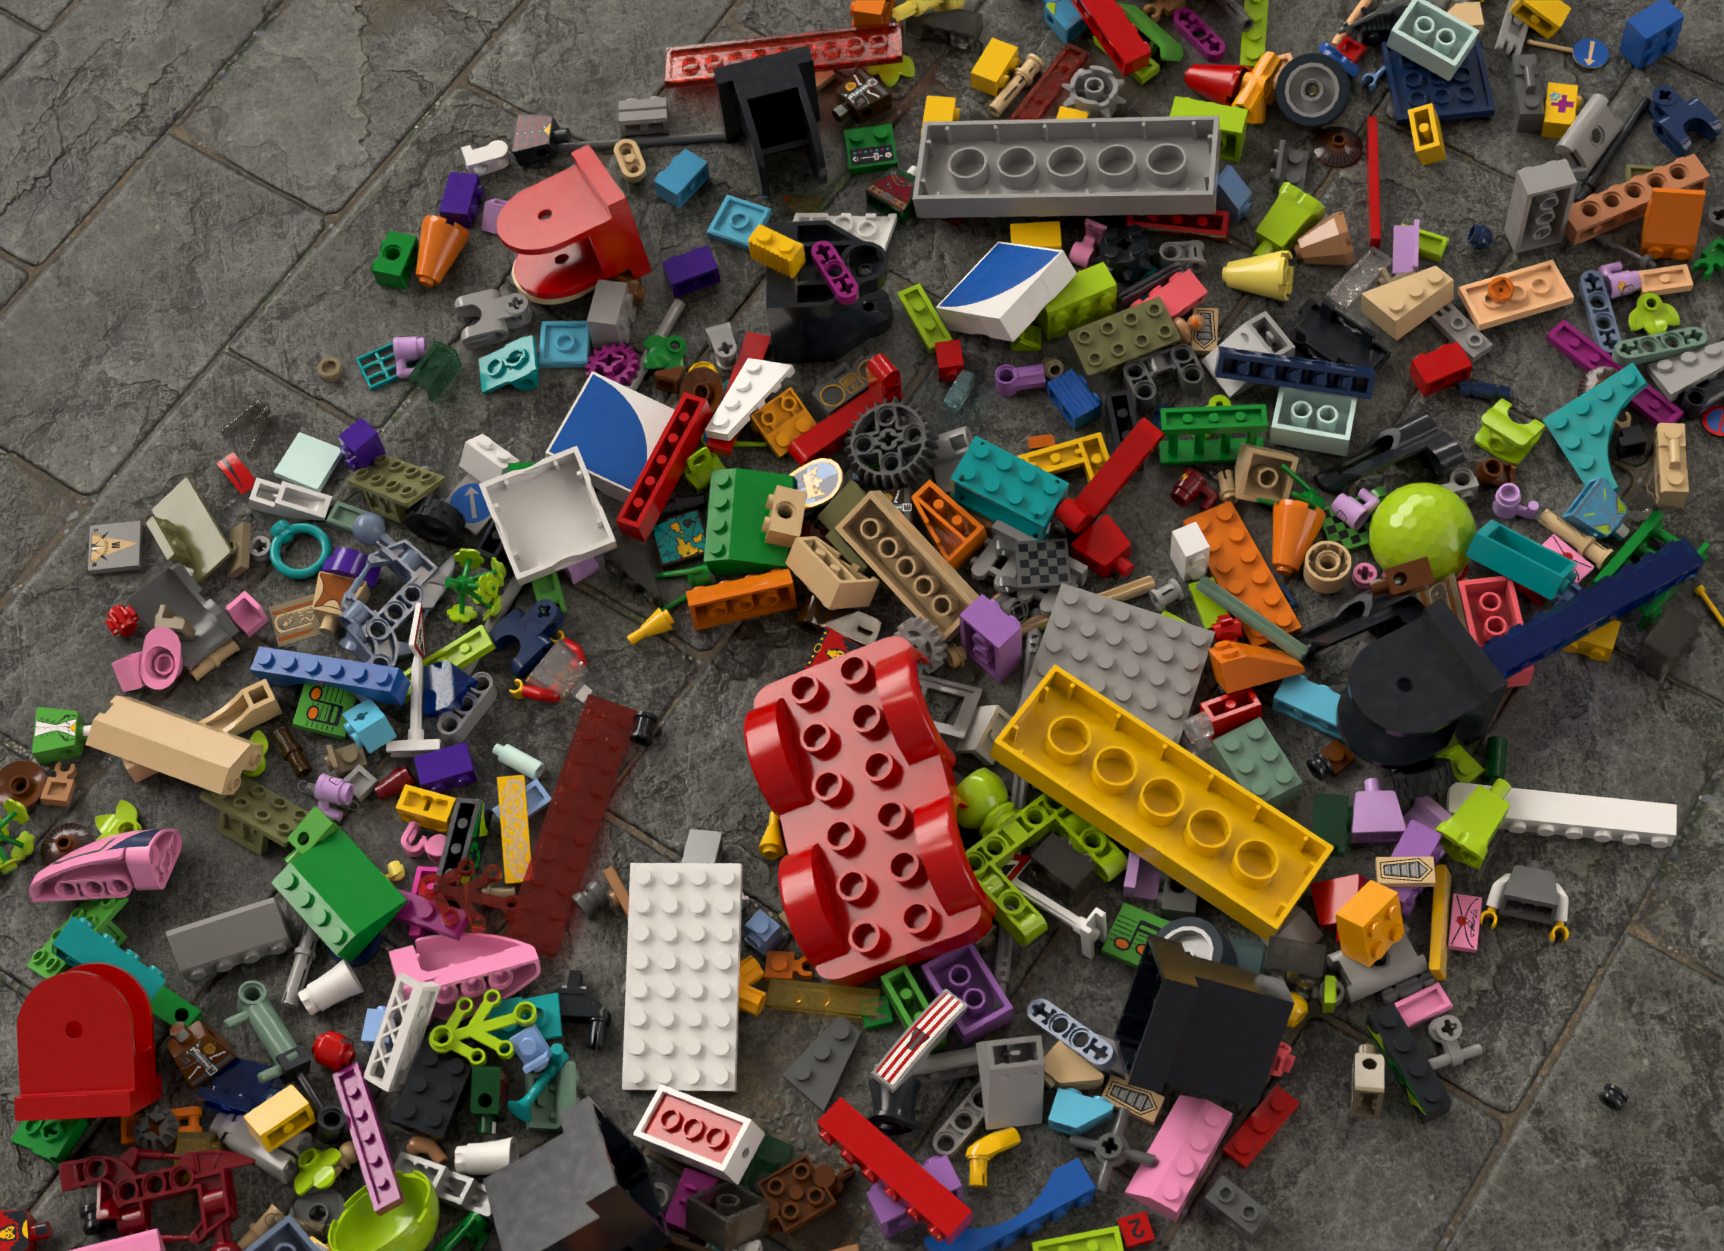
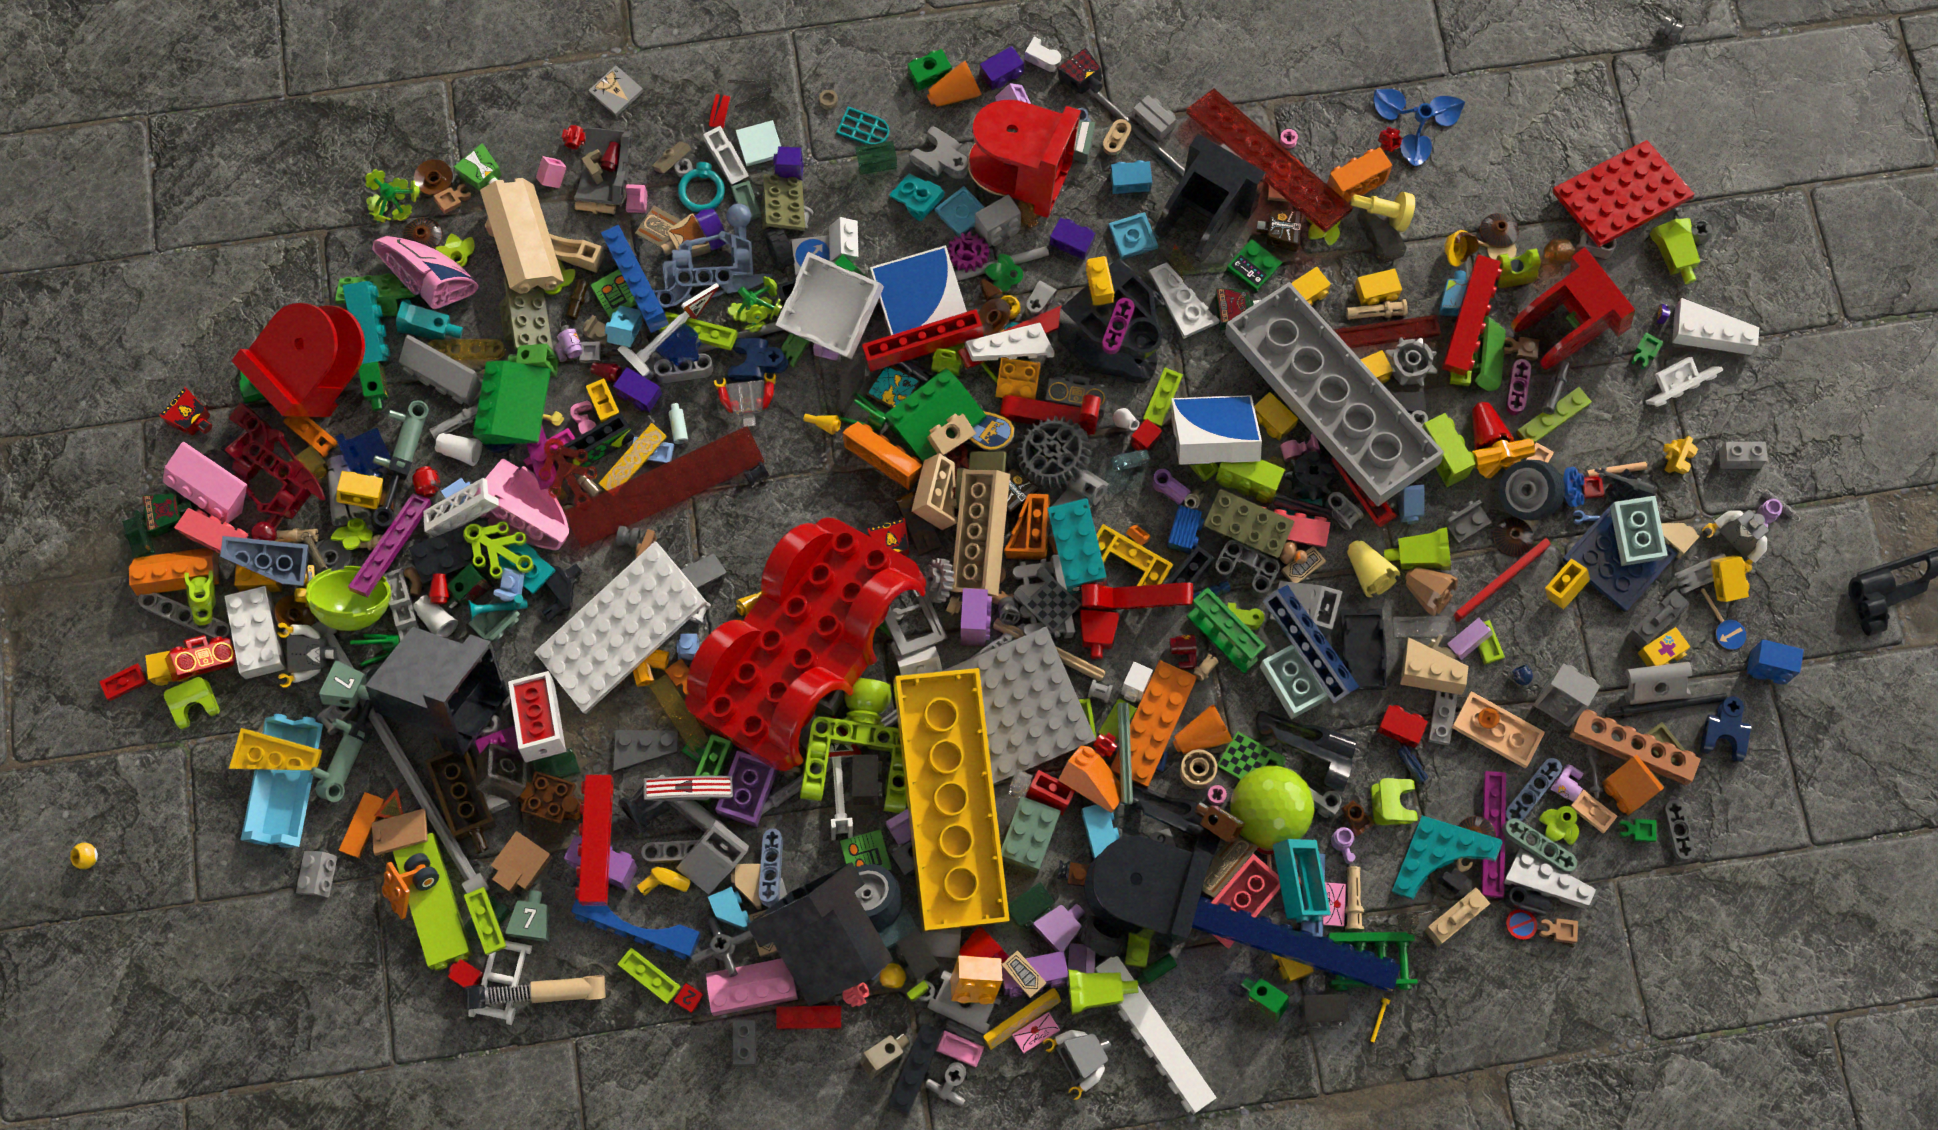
camera: 40 degrees right, 10 degrees up
(161, 658) = (566, 180): bright pink piece -> none
(165, 912) = (425, 322): none -> teal piece
(168, 1129) = (307, 438): dark grey gear -> none
(180, 602) = (610, 159): none -> dark red cone
(189, 532) = (655, 120): bracket -> none
(199, 1051) = (363, 413): reddish brown torso -> none
(227, 895) = (466, 345): none -> clear yellow beam
(407, 349) = (876, 130): lavender piece -> none
(466, 1124) = (438, 590): none -> red cone
(777, 23) = (1283, 140): none -> bright pink bush
(916, 363) = (1124, 419): none -> white cone
(1260, 473) = (1229, 682): tan slope -> none
(1309, 496) = (1236, 723): green plant -> none
(1352, 511) = (1251, 753): lavender piece -> none
(1598, 511) = (1381, 899): dark azure torso -> none
(1612, 684) = (1272, 1004): none -> green torso

